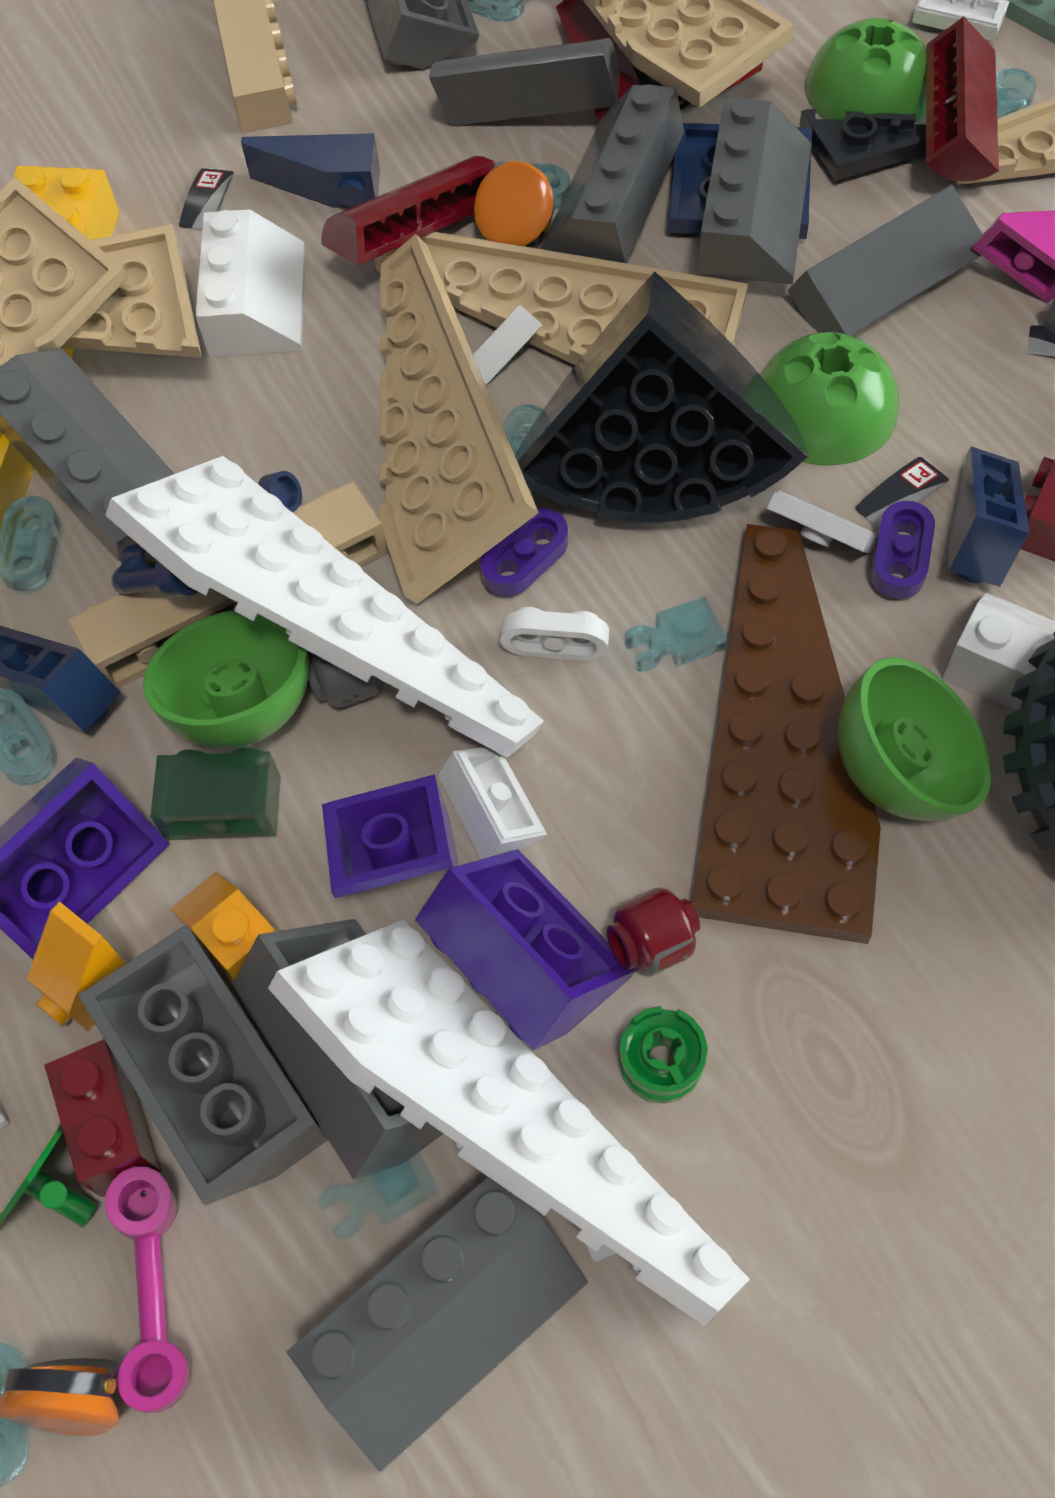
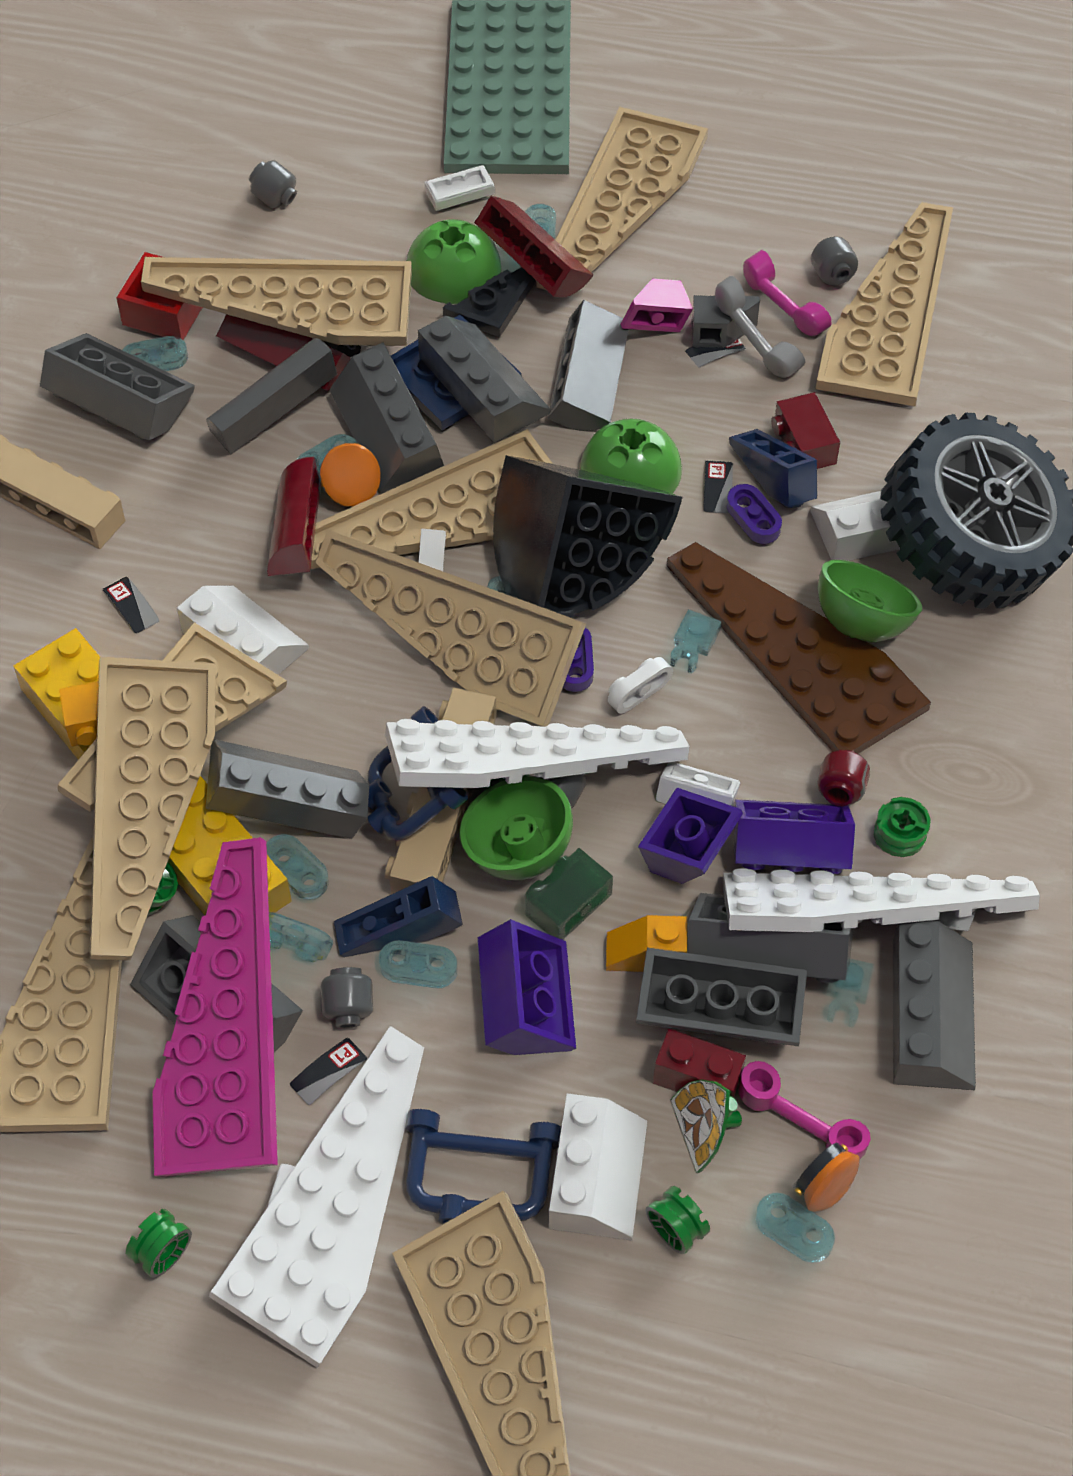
camera: 50 degrees left, 5 degrees down
(68, 963) = (610, 1019): light orange slope -> none
(322, 168) = (195, 534): dark blue slope -> none
(820, 524) = (705, 530): white plate -> none

